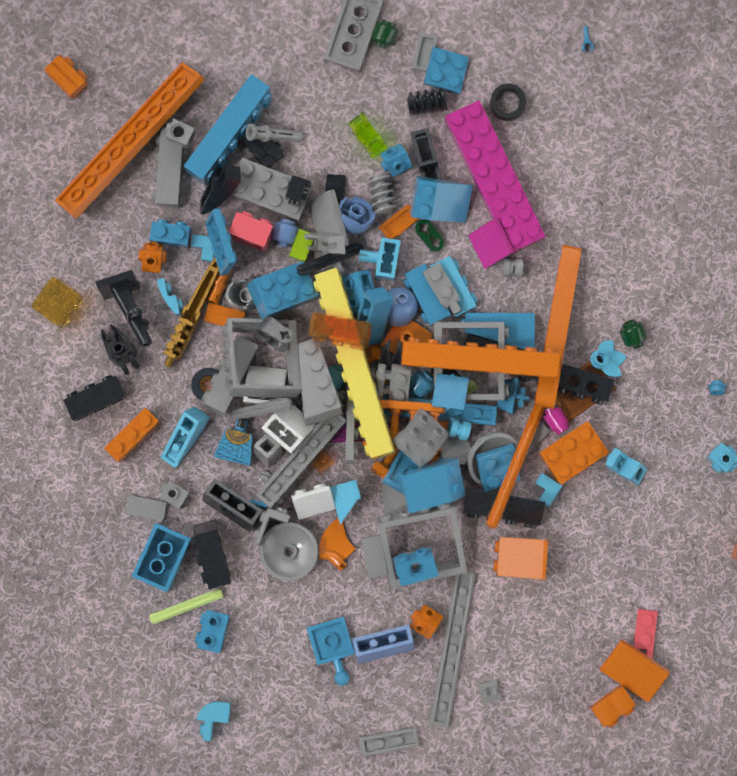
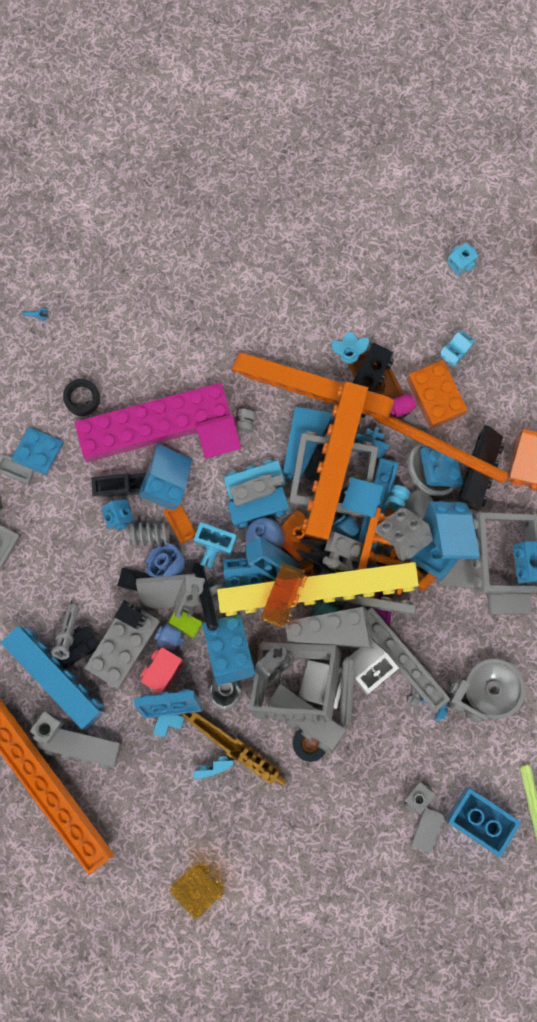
camera: 80 degrees left, 5 degrees down
(94, 398) = (304, 866): black brick -> none
(120, 350) = (259, 830): black hinge -> none
(121, 288) = (197, 818): black piece -> none
(132, 435) = (350, 832): orange brick -> none
(152, 257) = (169, 779): orange brick -> none
(171, 234) = (148, 757): dark azure brick -> none
(184, 436) = (359, 776): medium azure slope -> none
(210, 554) = (486, 770): black wedge -> none
(218, 288) = (213, 716): orange pin -> none
(218, 314) = (241, 717): orange tile -> none
(220, 188) = (112, 695): black slope -> none
(232, 505) = (439, 738): black brick -> none
(236, 444) = (377, 724): torso -> none
(267, 450) = (388, 693): light grey brick -> none
(313, 502) = (447, 654): white slope -> none
(322, 461) = (408, 639): clear orange tile -> none
(335, 545) = (492, 641): orange arm -> none
(345, 497) = (450, 621): medium azure slope -> none
(367, 136) = (88, 538): clear neon green brick -> none
(426, 101) = (63, 474): black piece -> none
(432, 232) = (195, 492): dark green beam -> none
(550, 488) = (469, 423): medium azure piece -> none
(633, 334) = (330, 319): dark green head -> none
(718, 386) = (394, 253): dark azure plate -> none

